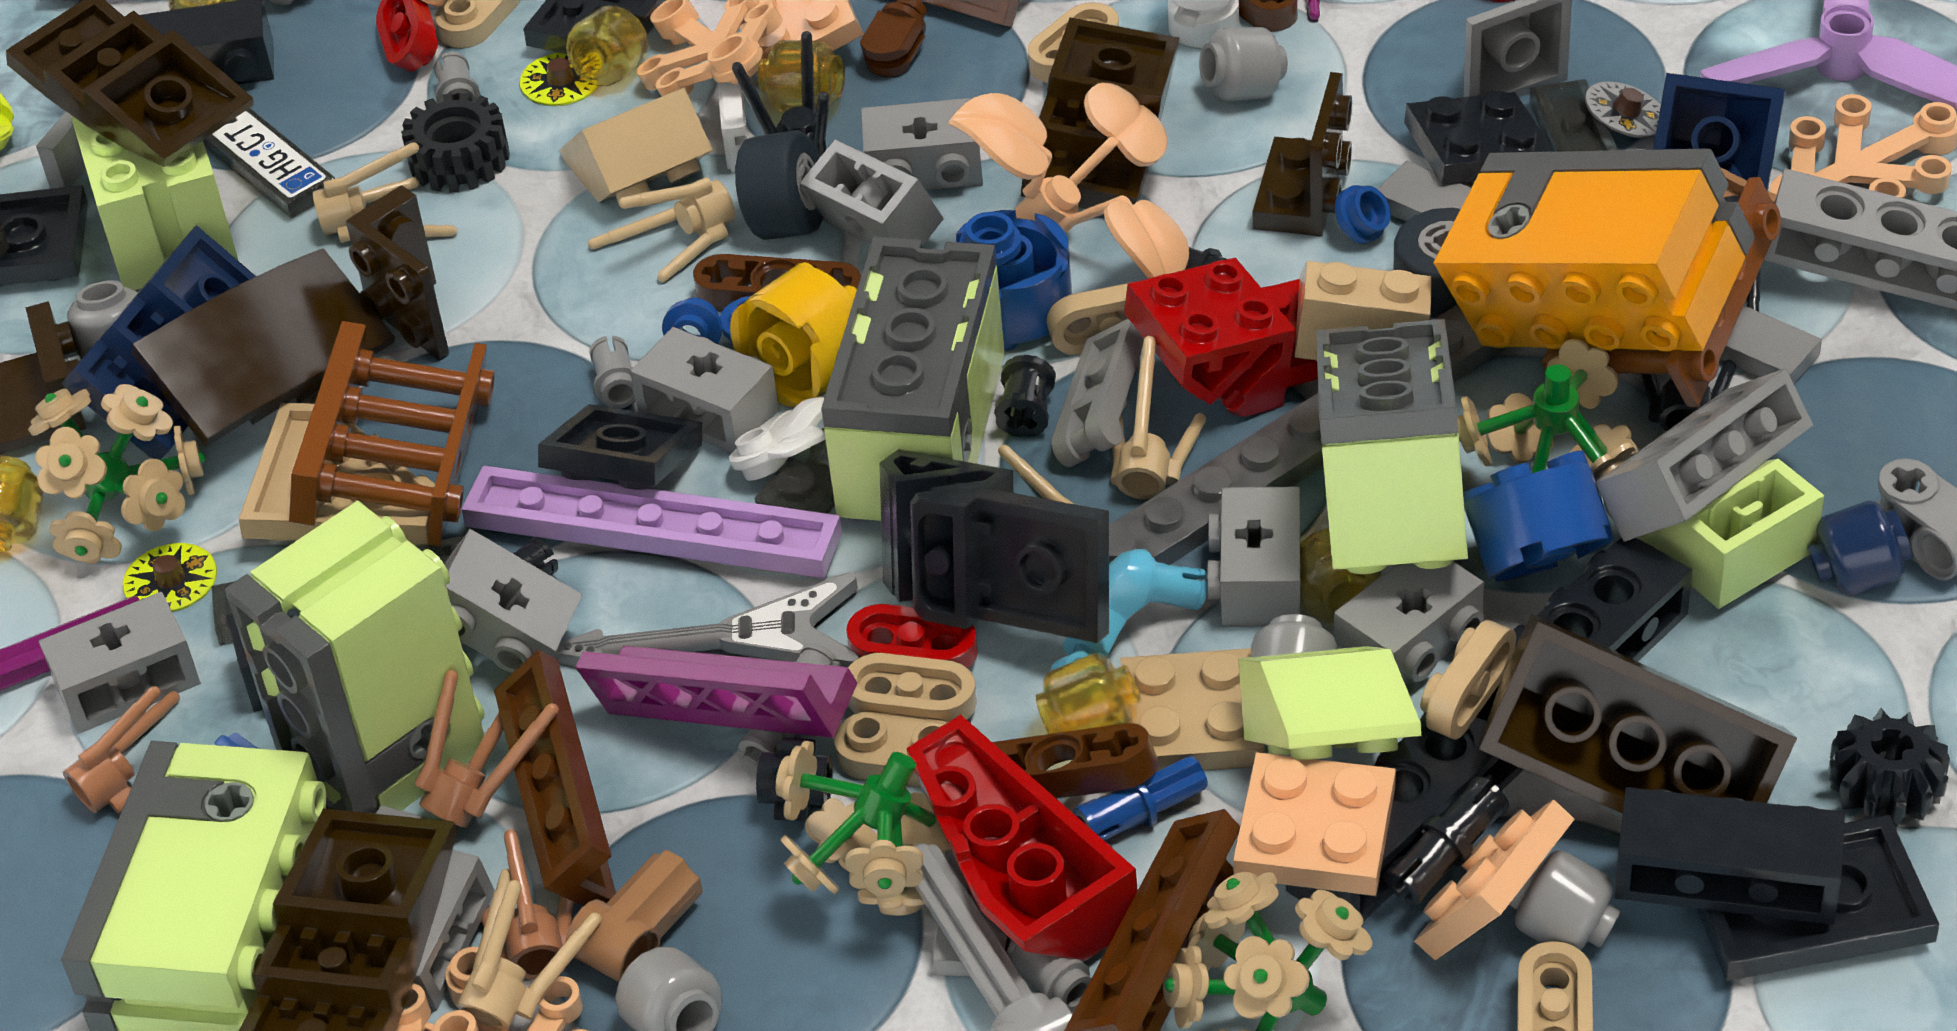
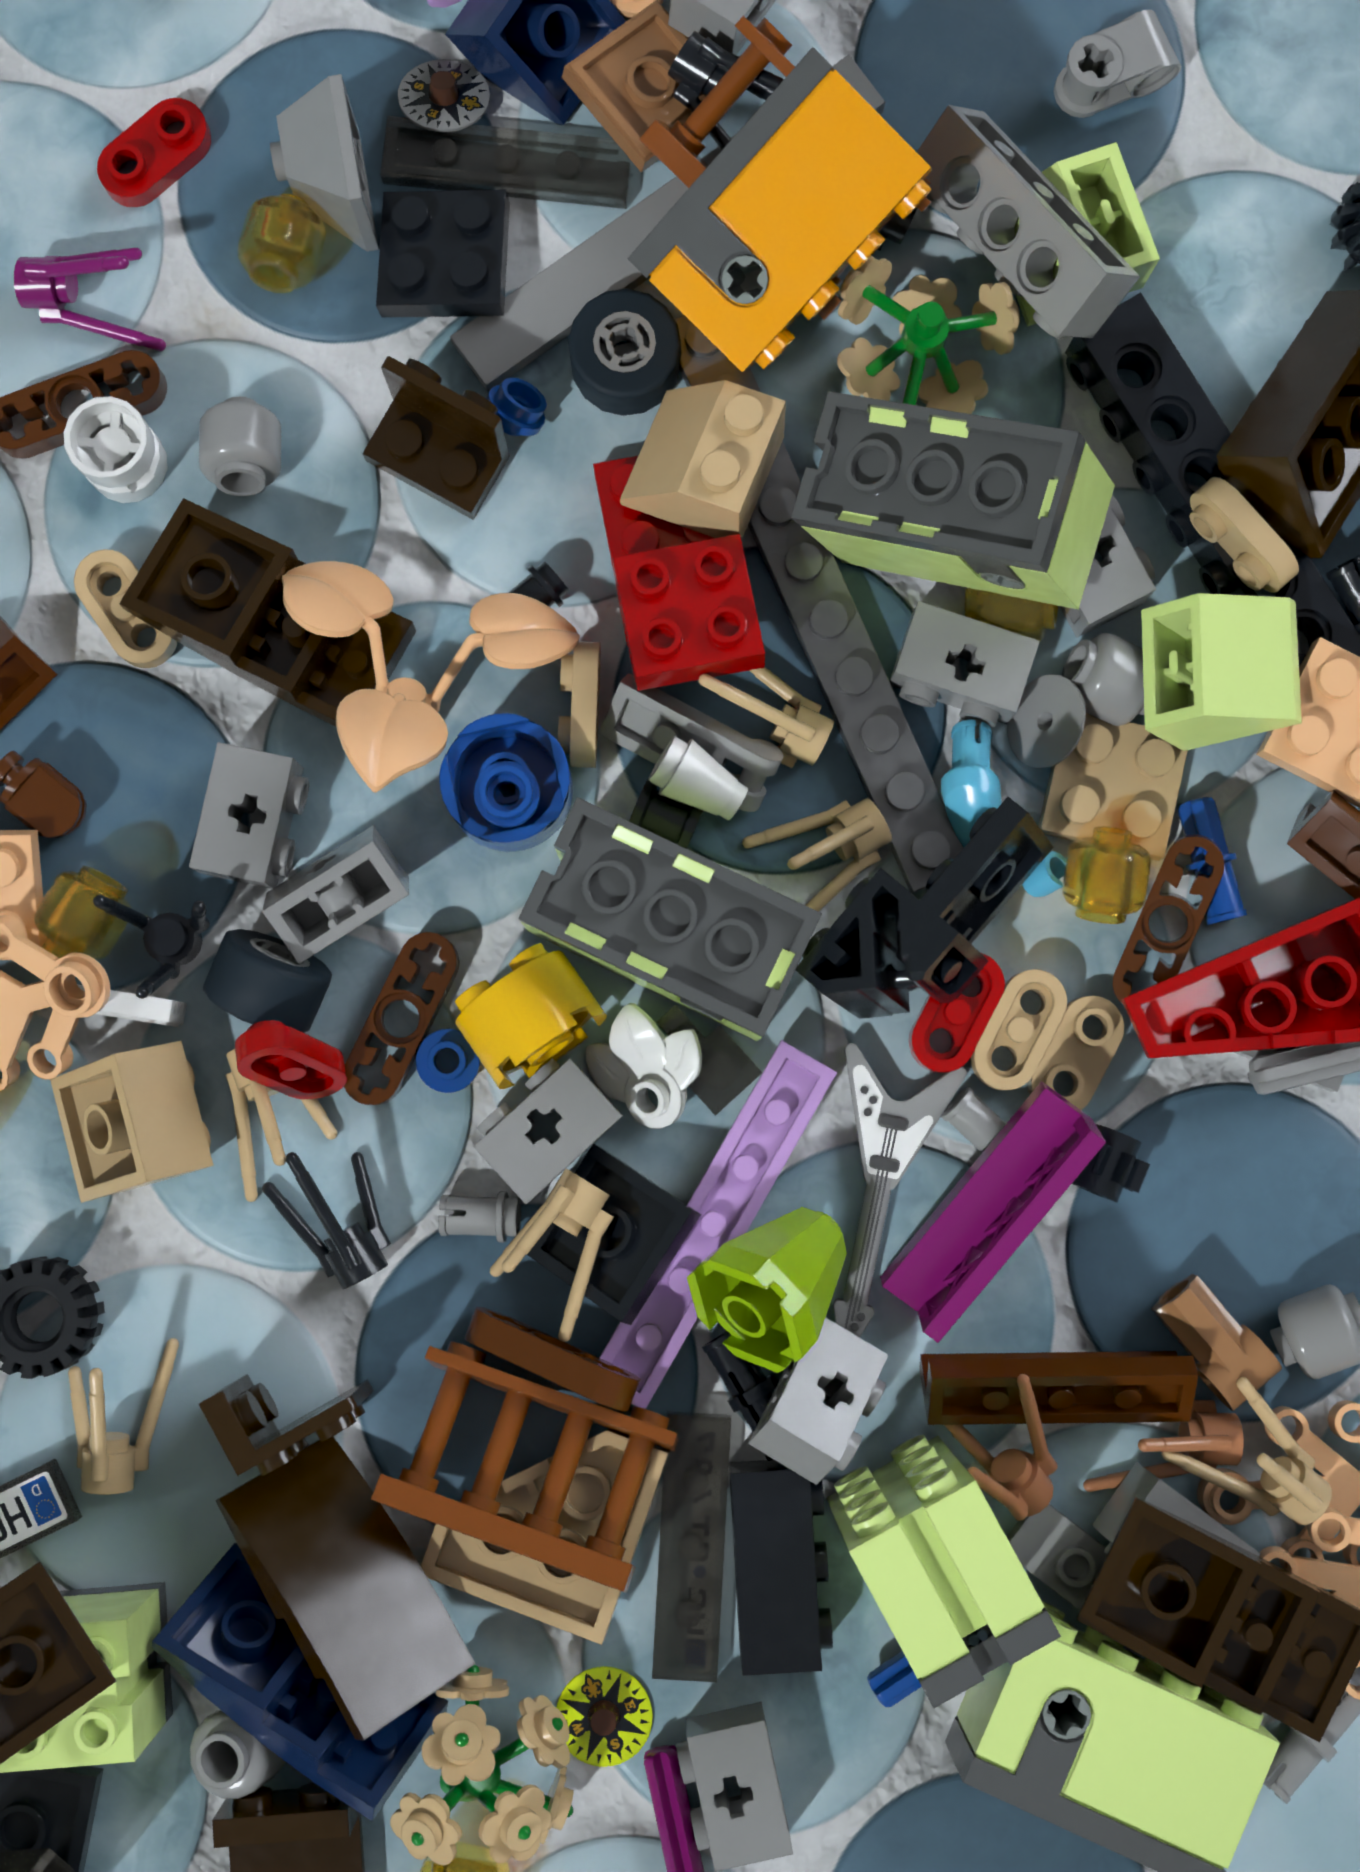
camera: 85 degrees left, 40 degrees up
(102, 769) = (877, 1813): nougat plant -> none
(494, 428) = (552, 1359): none -> reddish brown beam
(561, 297) = (348, 1252): none -> black plant
(610, 547) = (772, 1287): none -> lime cone
(632, 398) = (569, 1206): none -> tan plant
(695, 313) = (444, 1121): blue plate -> none
(712, 198) = (289, 1061): none -> red plate
(875, 860) = (1229, 1101): tan plant -> none
(1062, 381) = (697, 779): none -> white cone
(1228, 635) = (1047, 721): none -> light grey piece
(1430, 42) = (281, 243): none -> clear yellow head
(1537, 518) = (1051, 385): blue brick -> none
(1860, 548) = (1142, 130): dark blue head -> none

